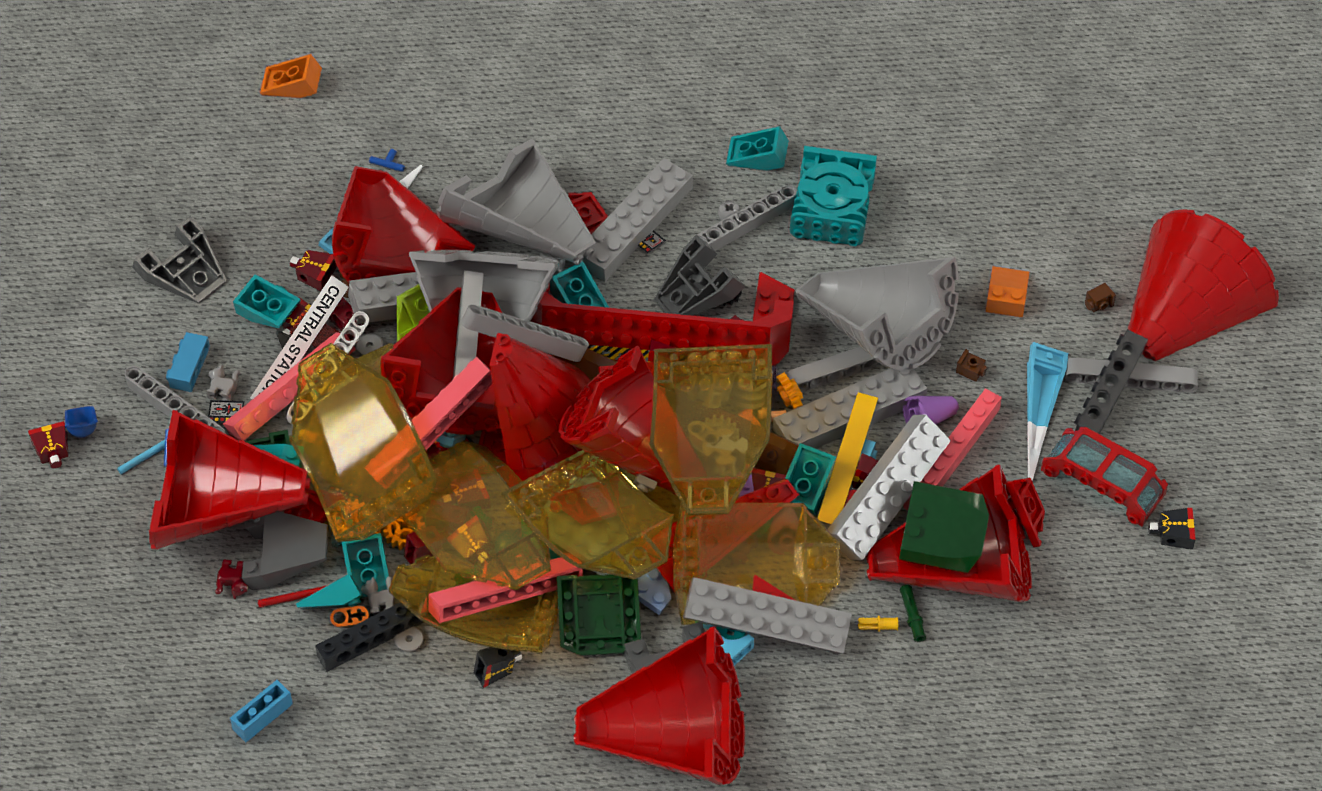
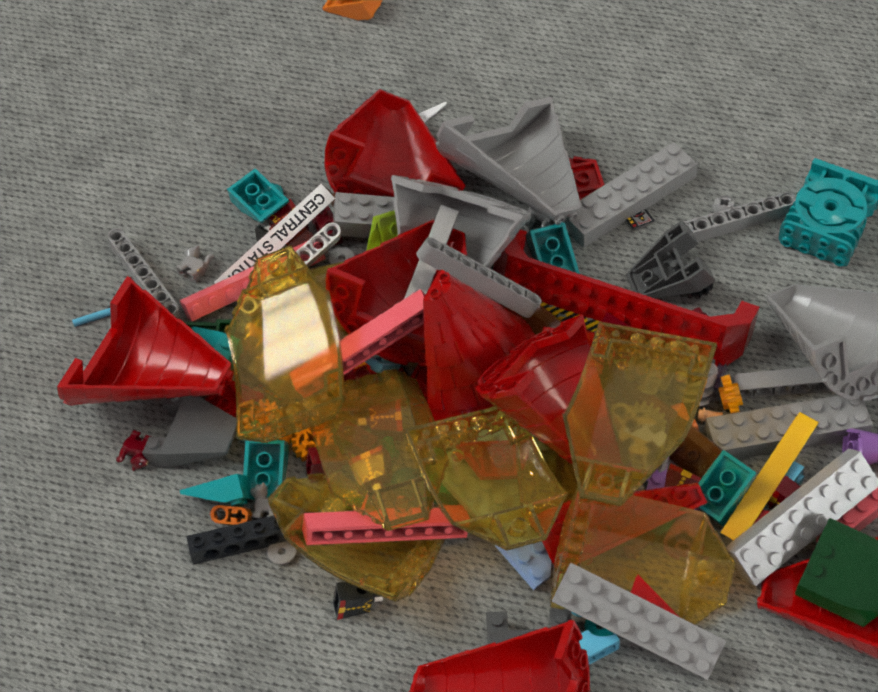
camera: 20 degrees right, 0 degrees up
(50, 443) = (21, 283): dark red torso -> none
(81, 421) = (53, 268): blue helmet -> none
(188, 272) = (201, 154): dark grey wedge -> none
(188, 362) = (170, 236): dark azure brick -> none
(222, 410) = (185, 287): piece -> none
(261, 711) = (114, 588): dark azure brick -> none
(288, 597) = (179, 481): red piece -> none
(314, 268) = (311, 174): dark red torso -> none
(388, 161) = (416, 94): blue piece -> none
(598, 613) = (469, 575): dark green wedge -> none
(644, 483) = (550, 454): dark tan plate -> none
(759, 149) = (771, 154): teal slope -> none
(767, 292) = (741, 290): red wing -> none
(878, 623) = (754, 656): yellow axle -> none
(914, 619) = (794, 661): dark green pin -> none

